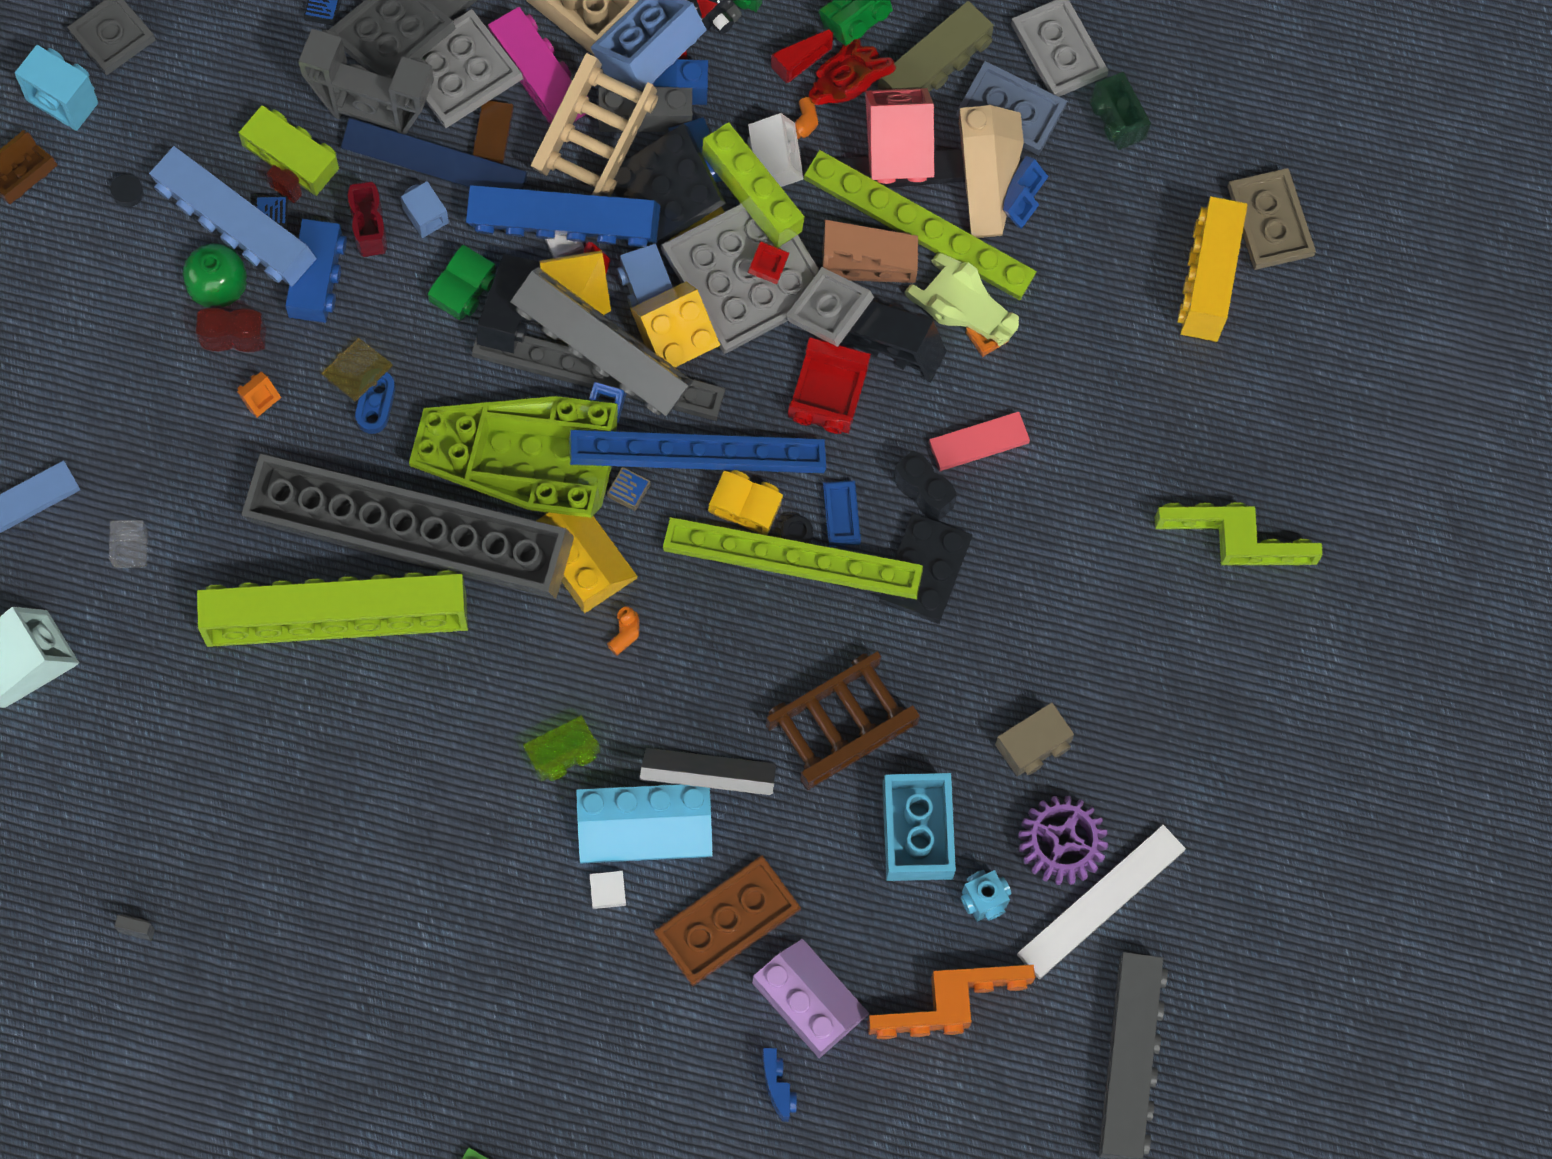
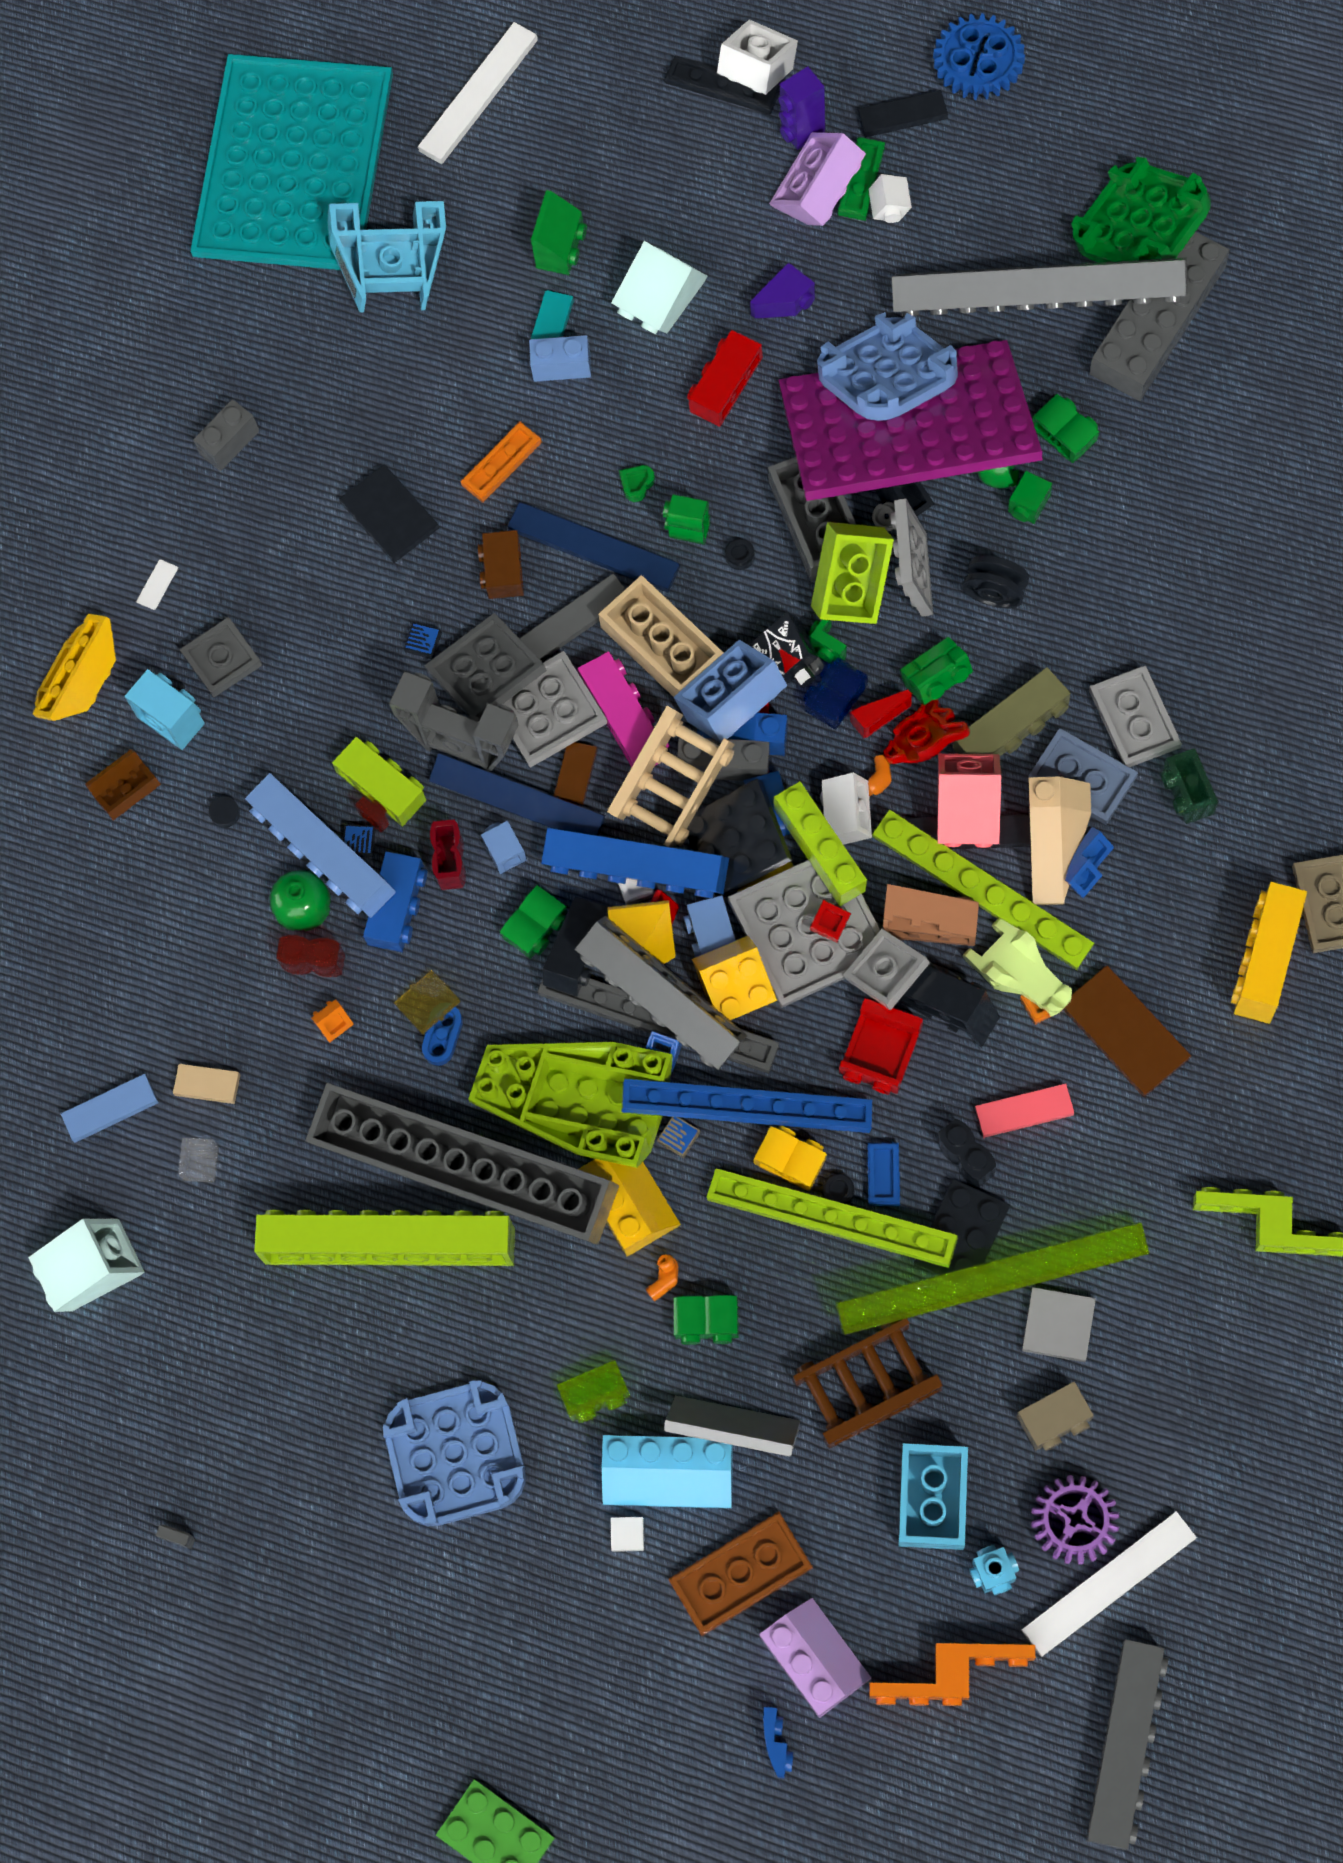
camera: 20 degrees right, 0 degrees up
(130, 467) = (206, 1083): none -> tan tile
(421, 822) = (454, 1454): none -> medium blue tile
(672, 668) = (706, 1318): none -> green brick
(754, 38) = (835, 693): none -> clear blue brick
(959, 607) = (991, 1278): none -> clear neon green plate
(1030, 650) = (1058, 1324): none -> light grey tile
(1075, 357) = (1126, 1031): none -> reddish brown tile

